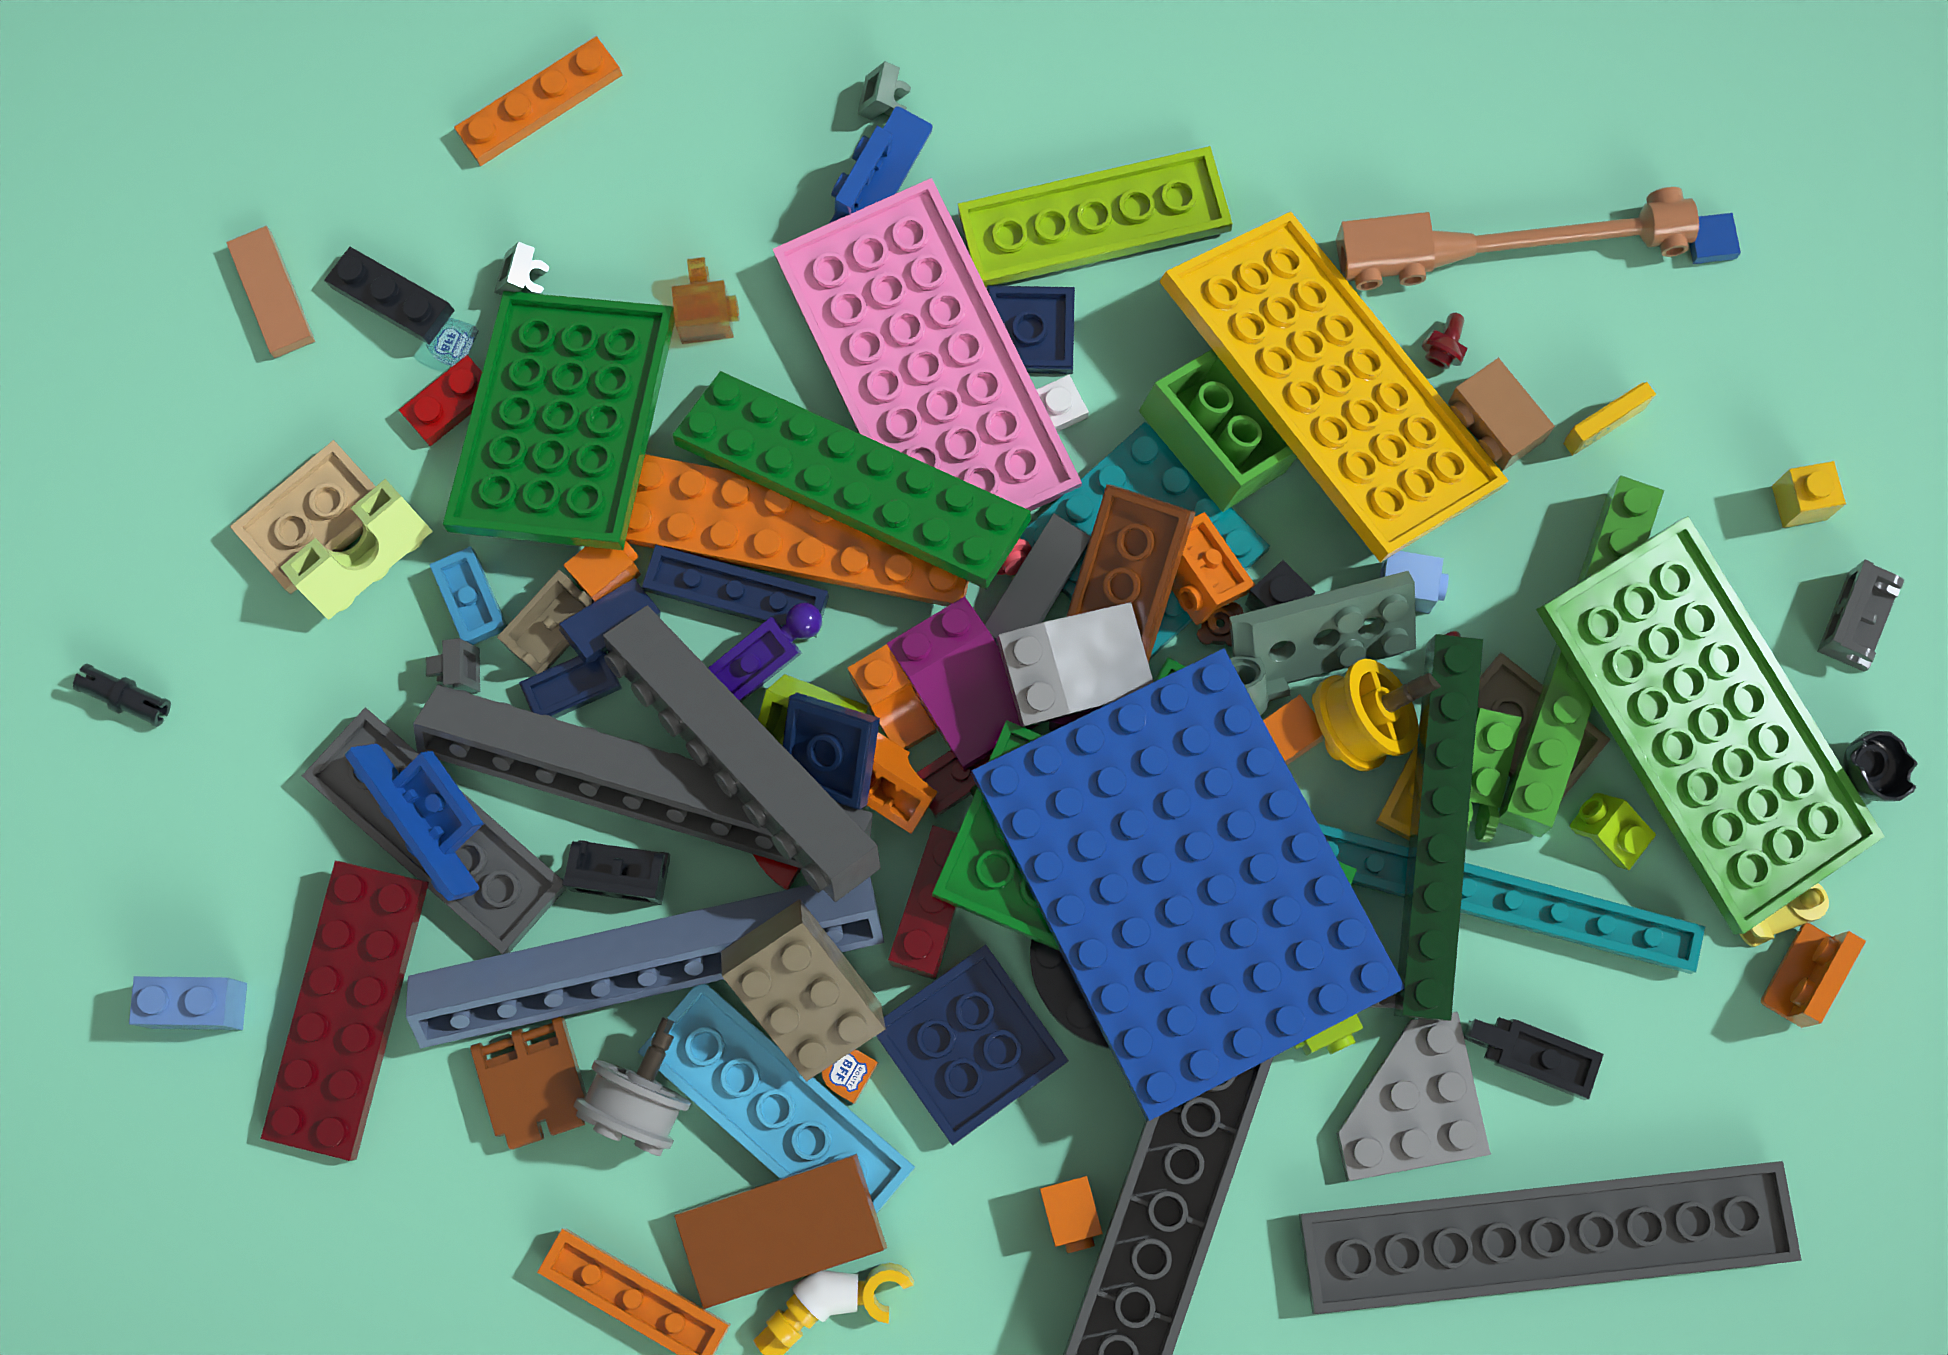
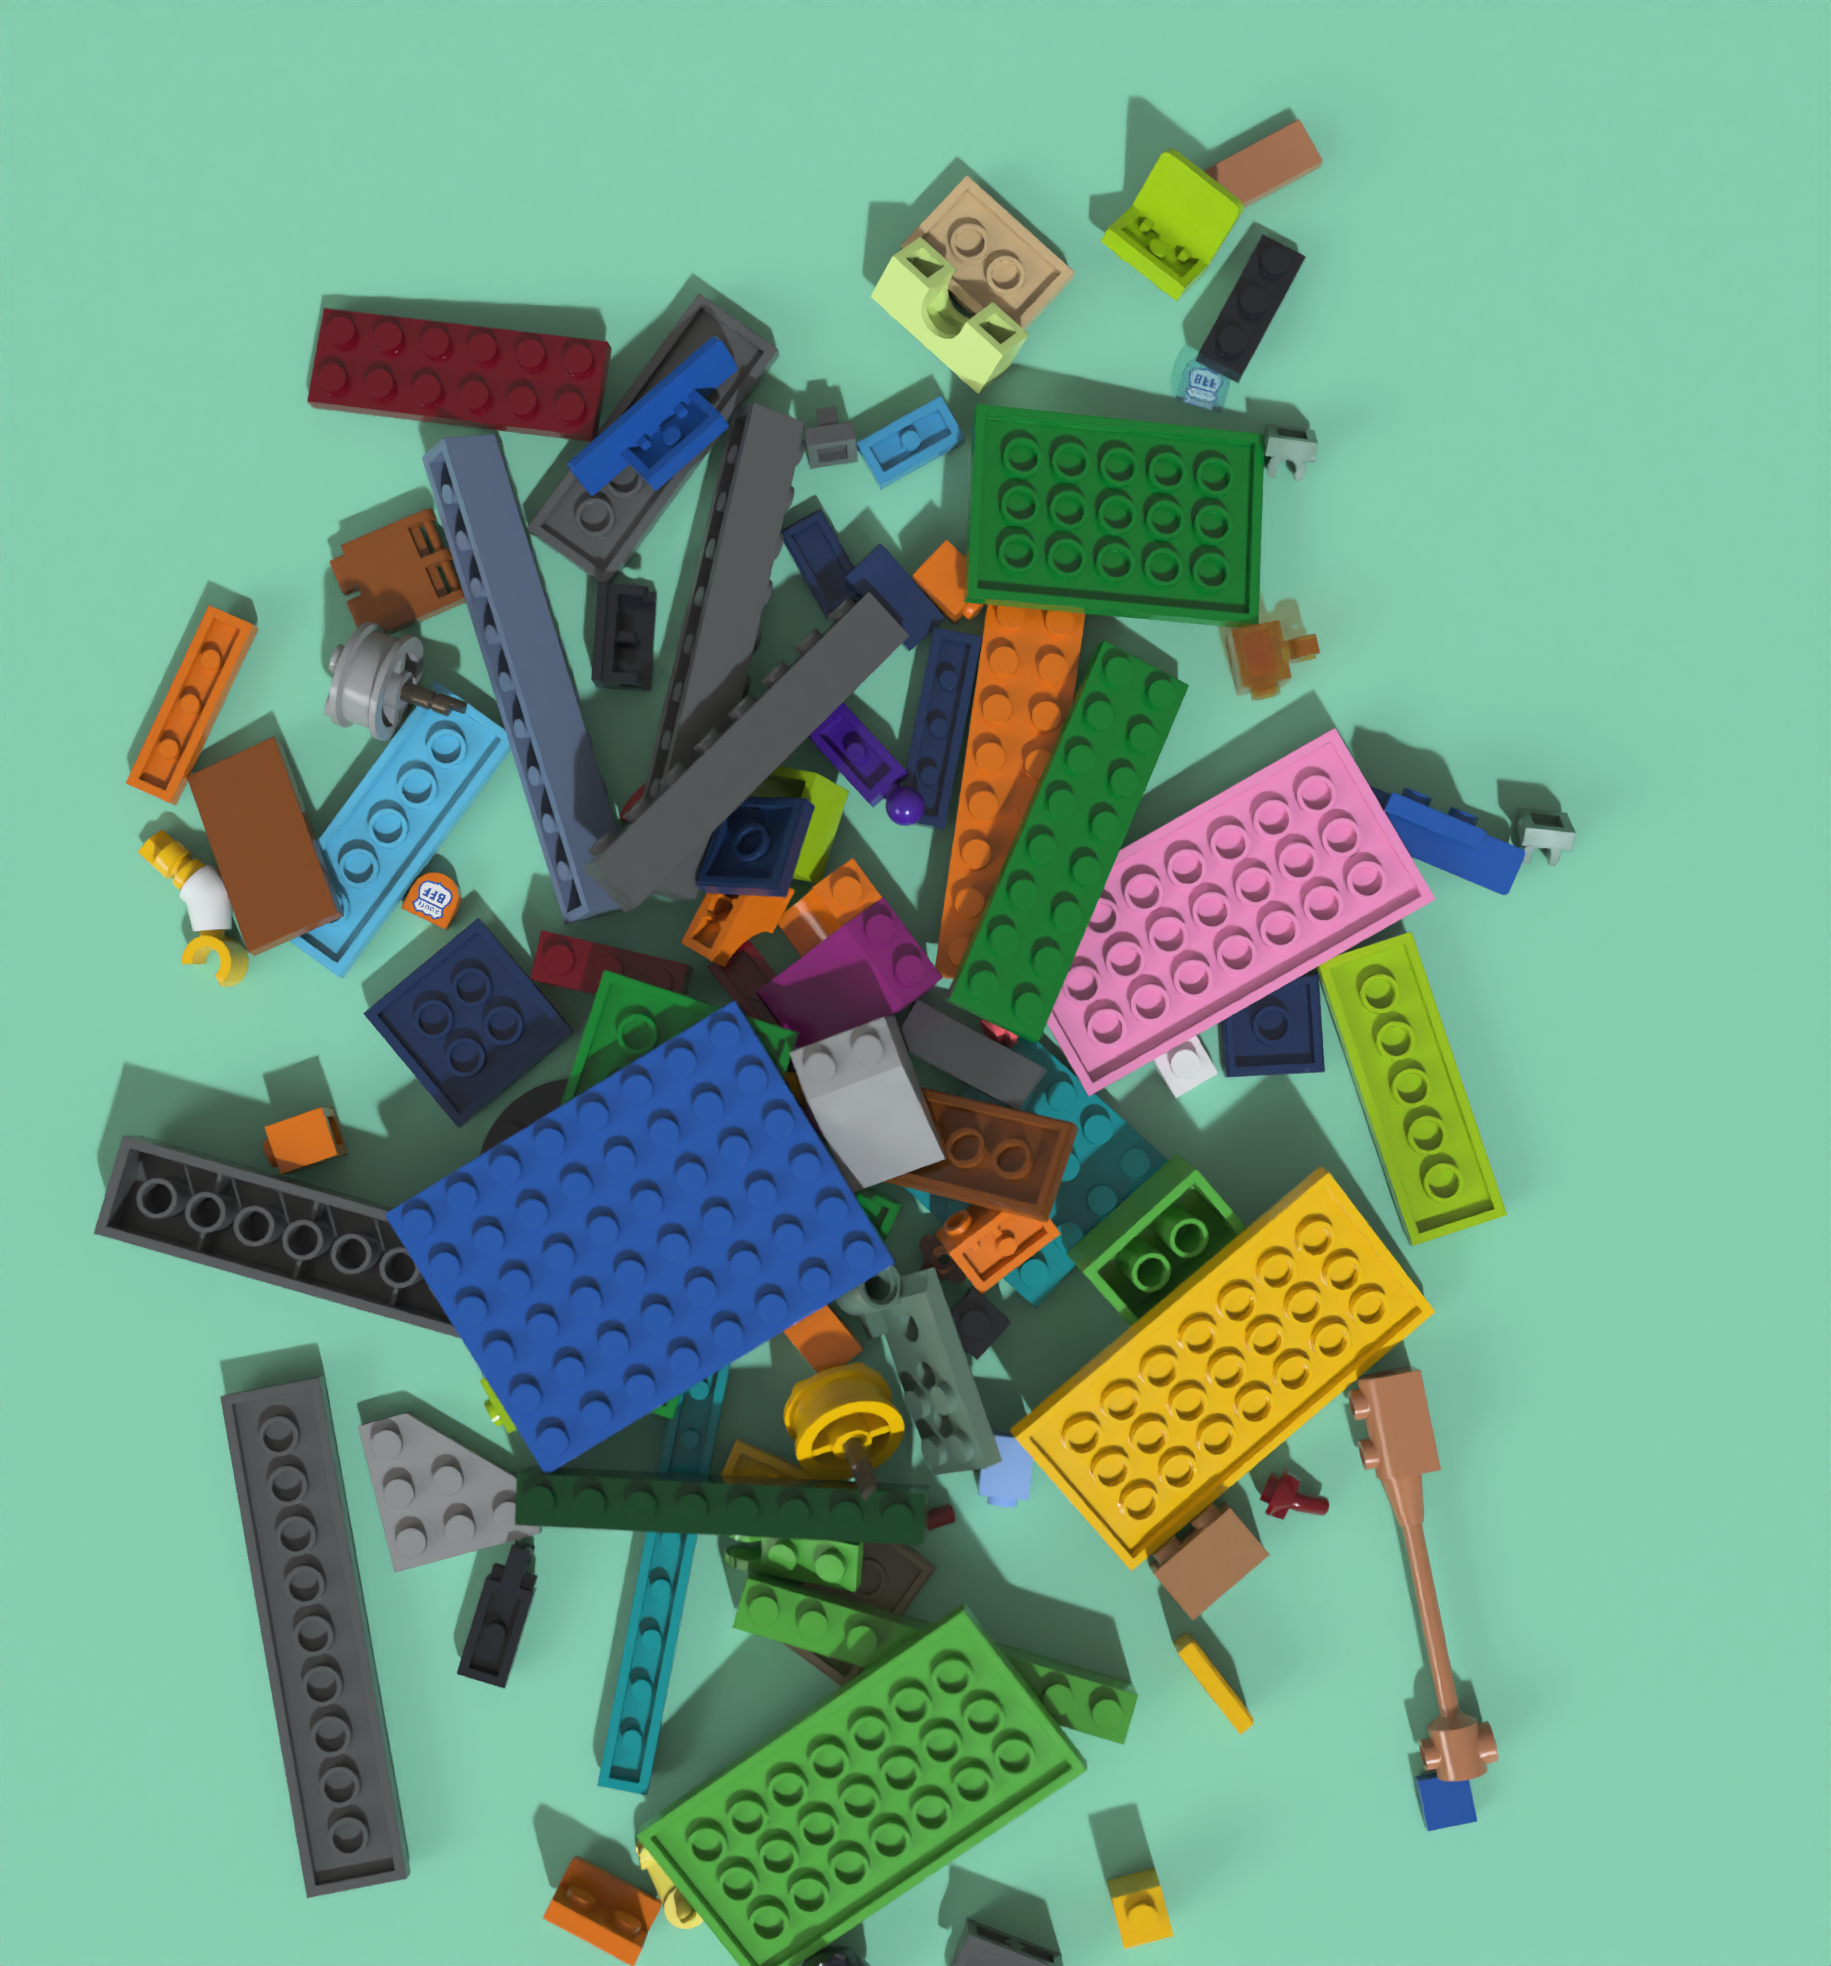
camera: 80 degrees right, 10 degrees up
(121, 695) = (774, 90): black pin -> none
(188, 1003) = (452, 213): medium blue brick -> none
(303, 347) = (1174, 224): none -> lime bracket
(444, 401) = (1133, 386): red plate -> none
(535, 630) = (876, 520): dark tan hinge -> none
(538, 101) = (1503, 443): orange plate -> none
(802, 990) = (501, 843): dark tan brick -> none
(1613, 828) = (747, 1694): lime bracket -> none

